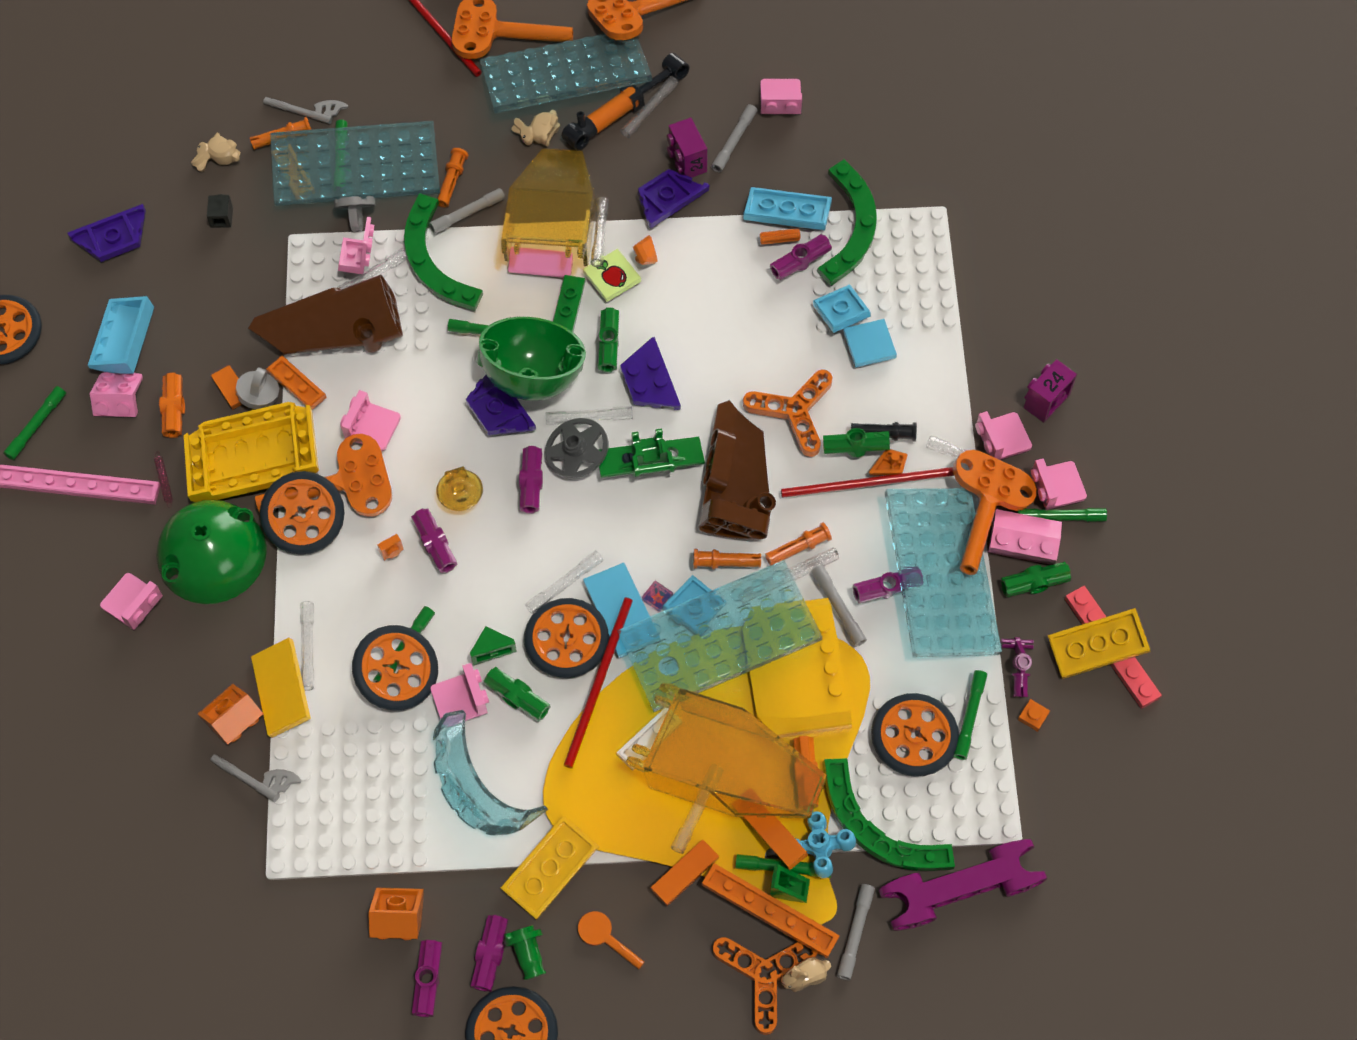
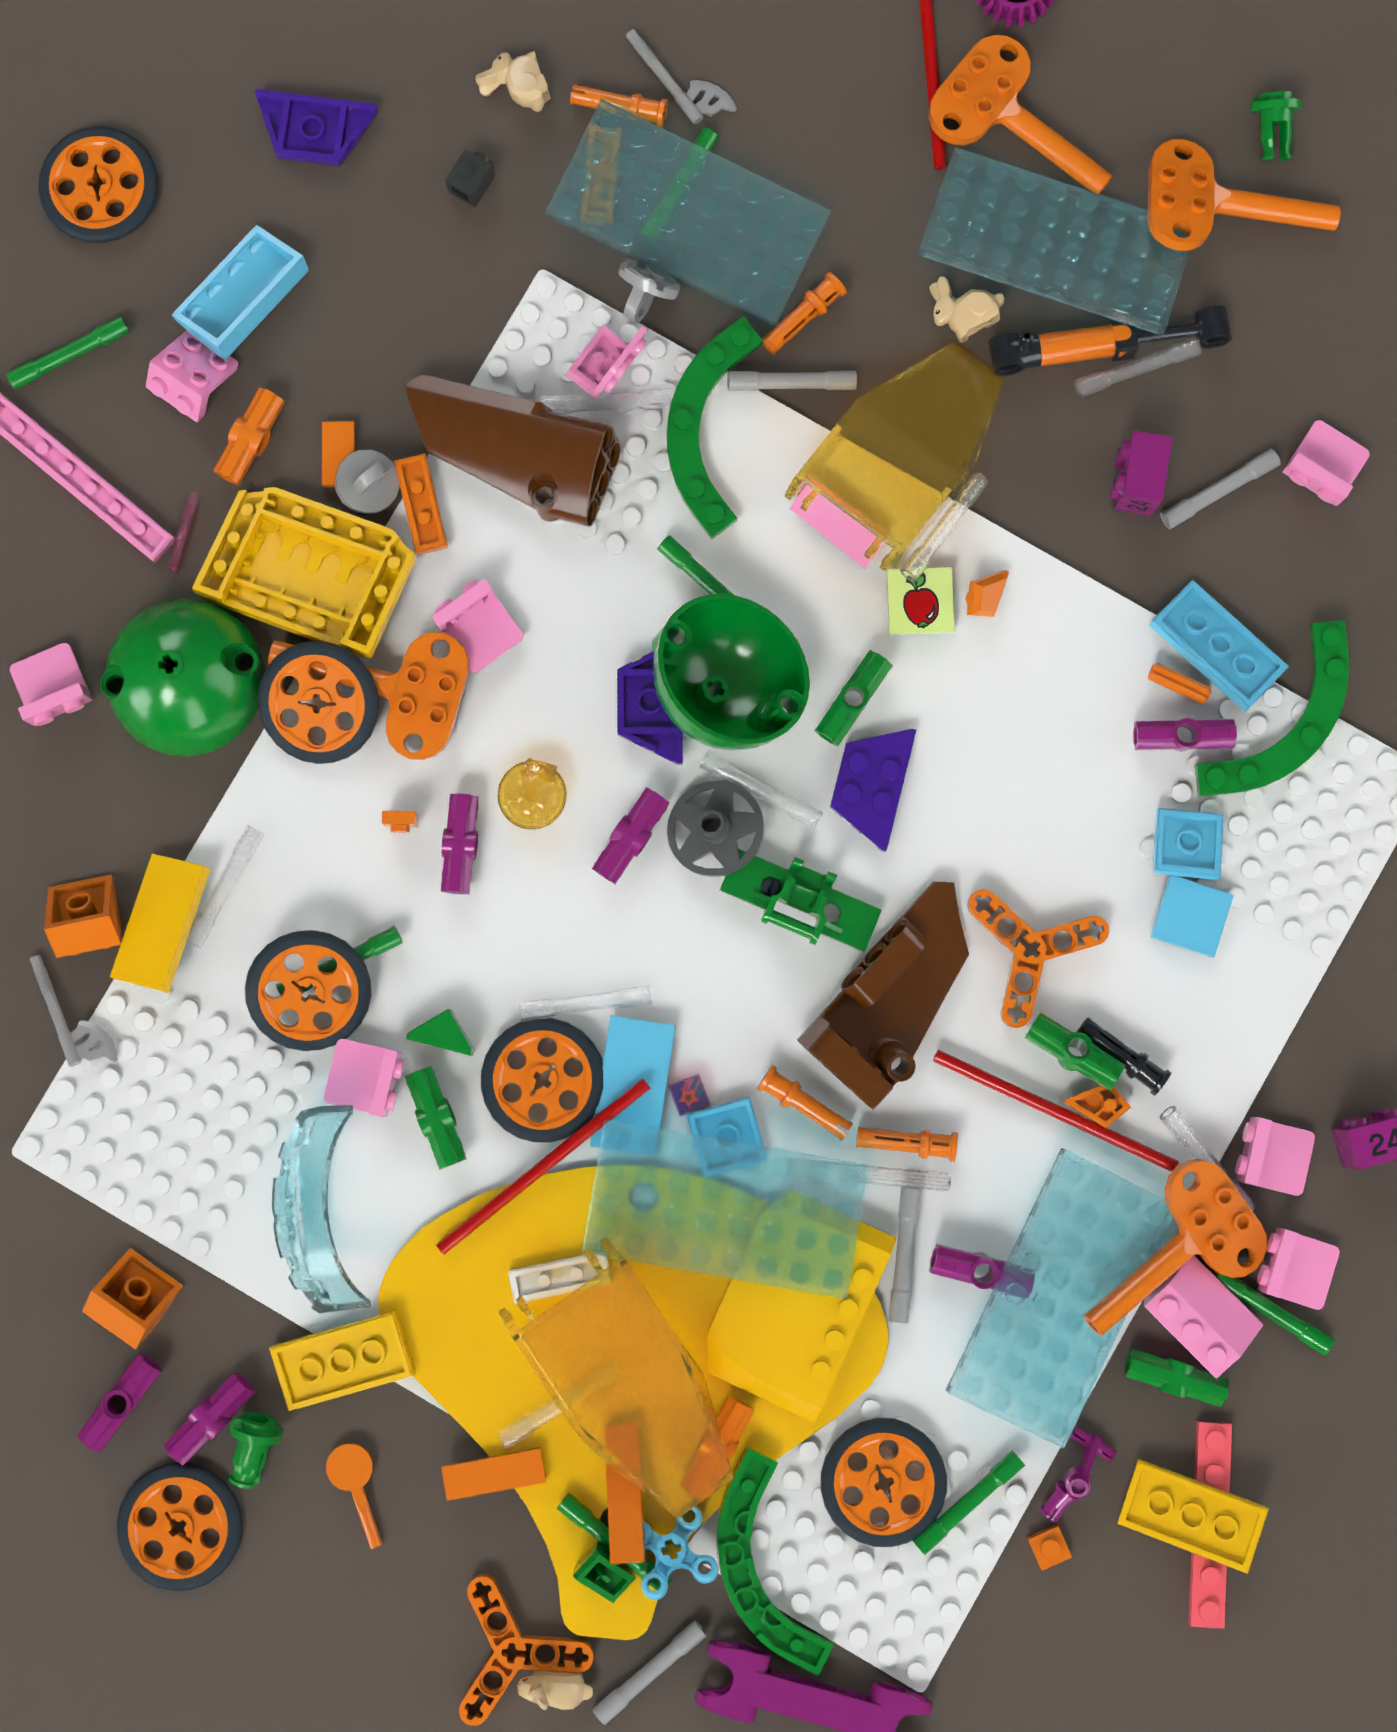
camera: 35 degrees right, 20 degrees up
(569, 301) = (836, 609): green plate -> none
(668, 195) = (1072, 523): dark purple wing -> none
(770, 910) = (562, 1589): orange plate -> none

